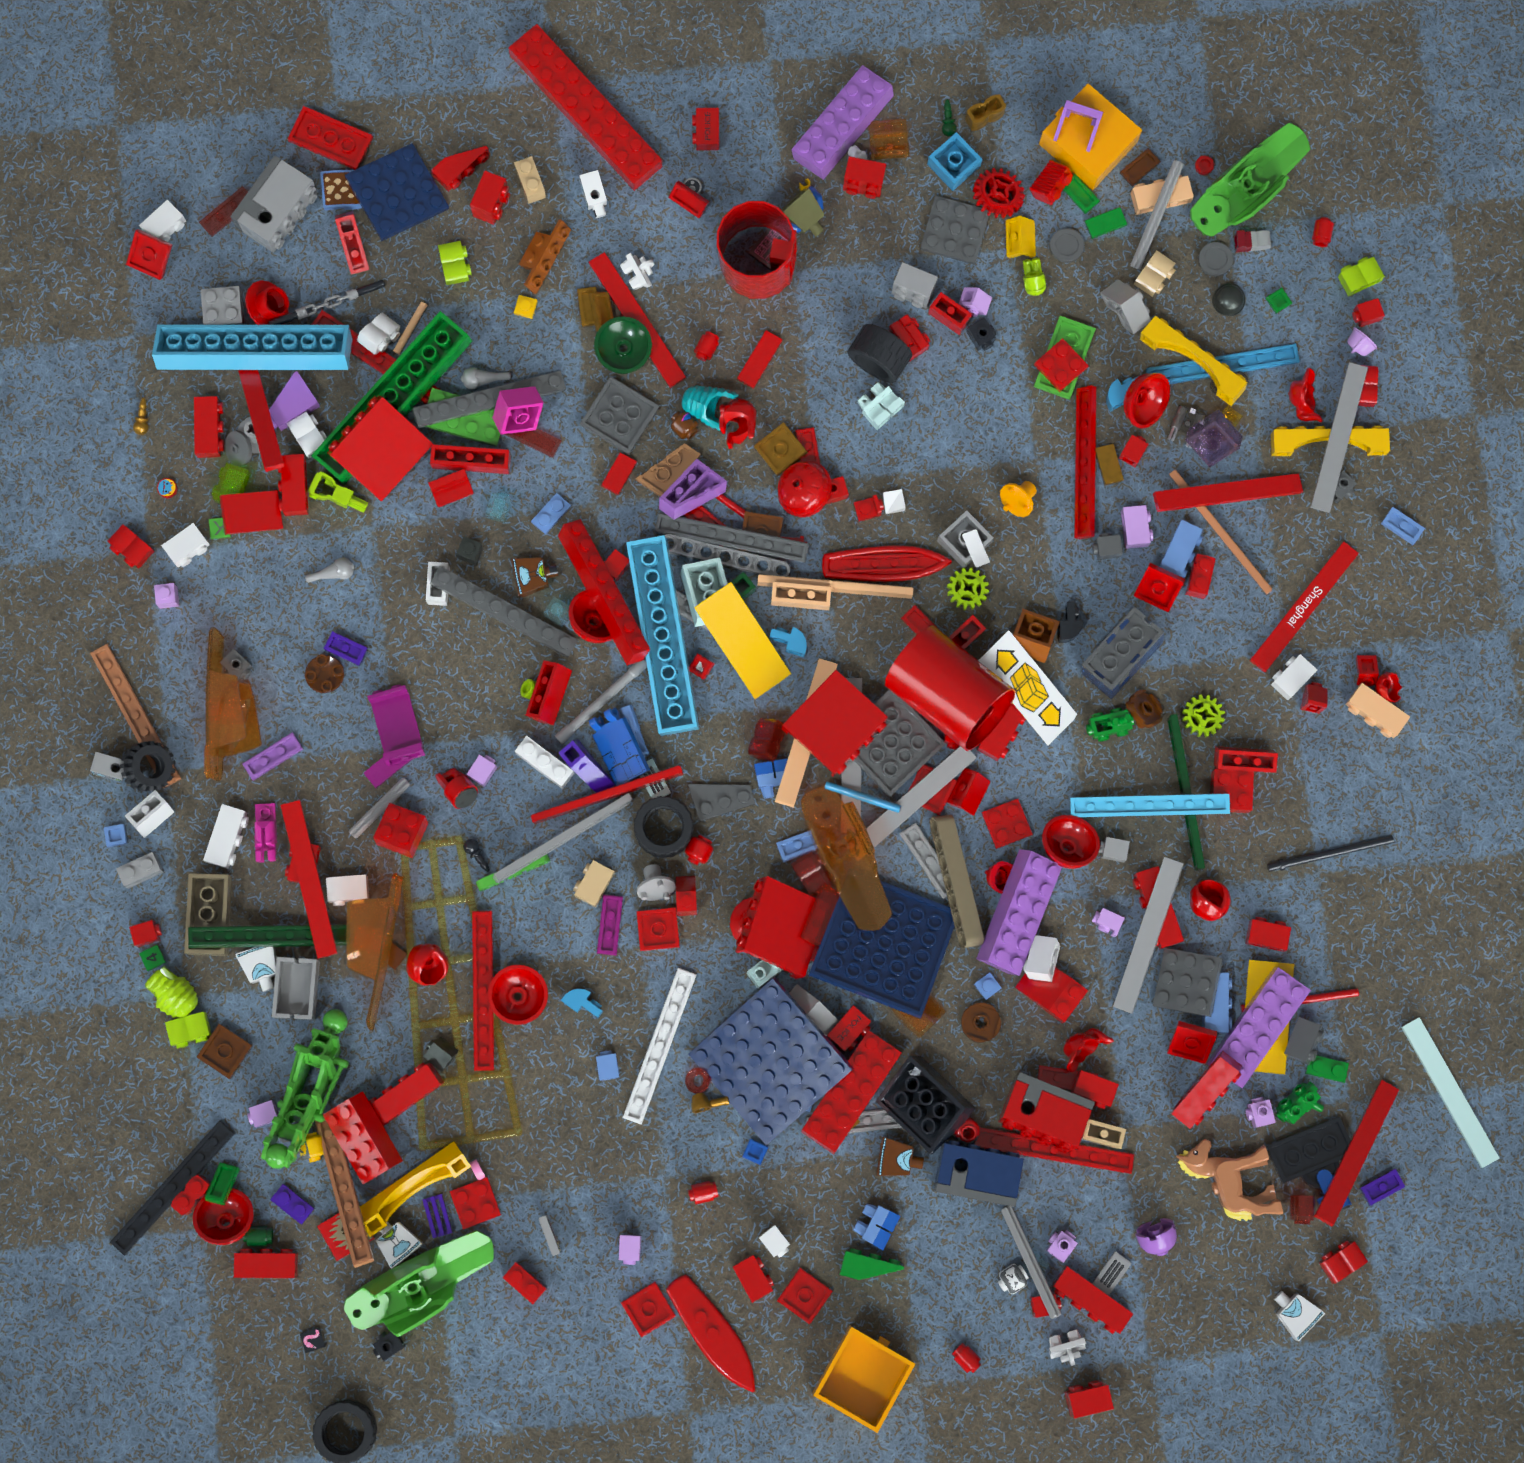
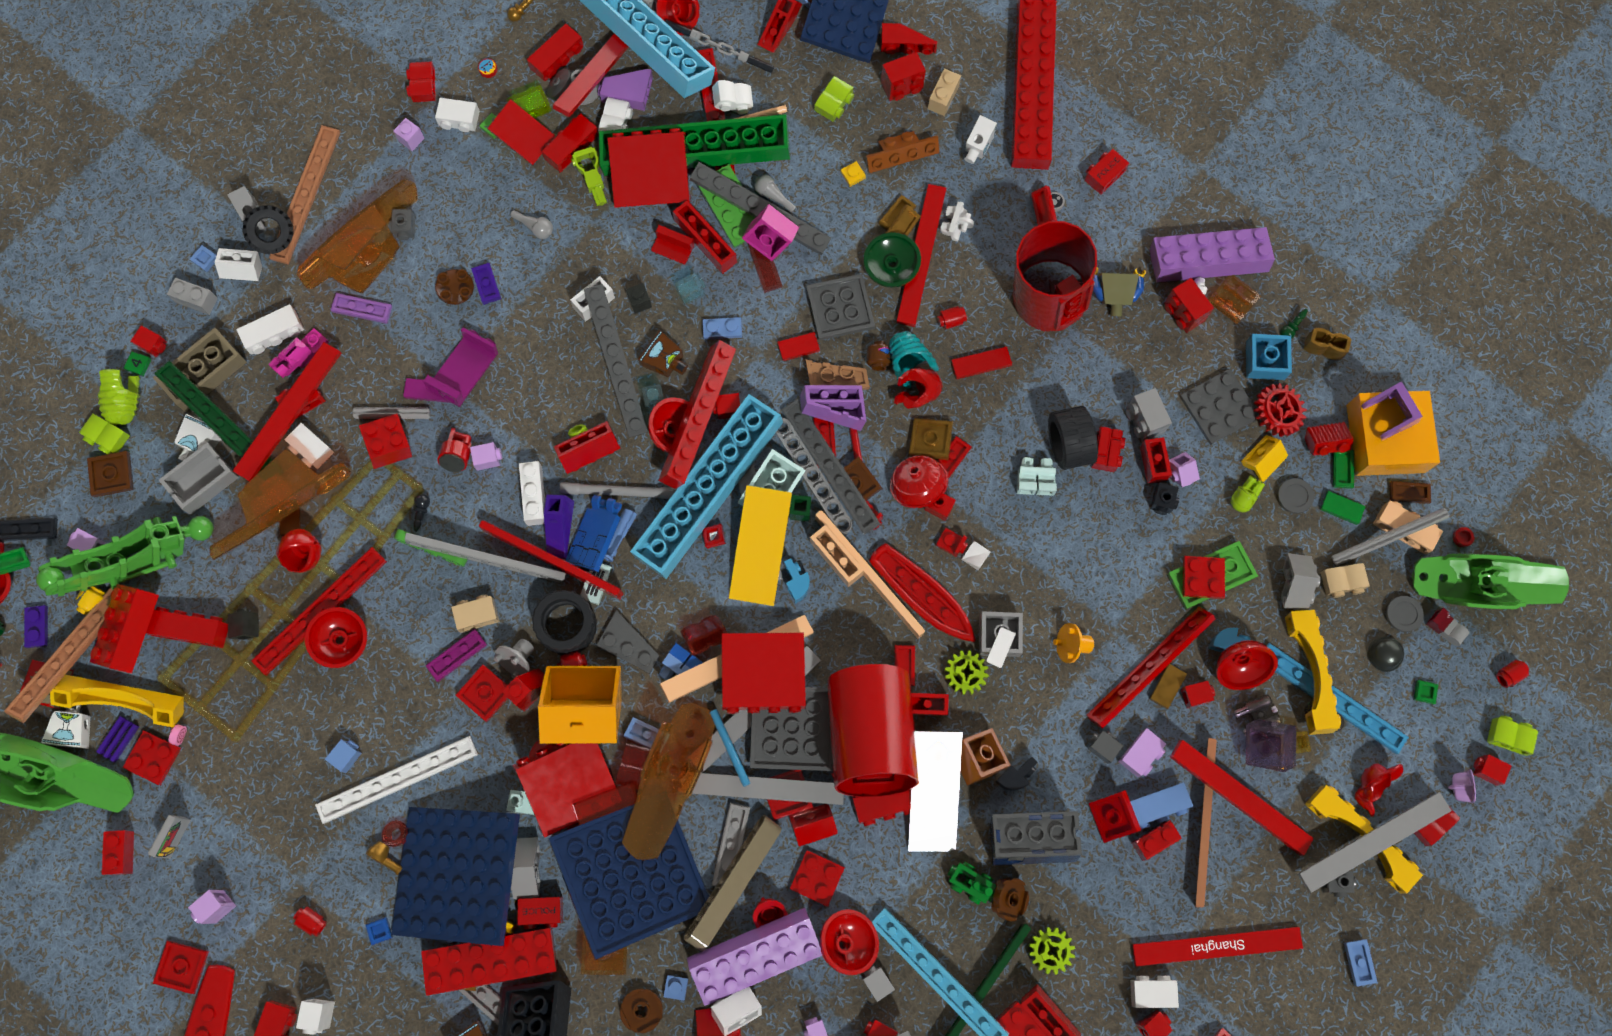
camera: 50 degrees right, 5 degrees down
(579, 998) = (376, 687): dark azure brick -> none
(738, 866) = (580, 704): none -> light orange container

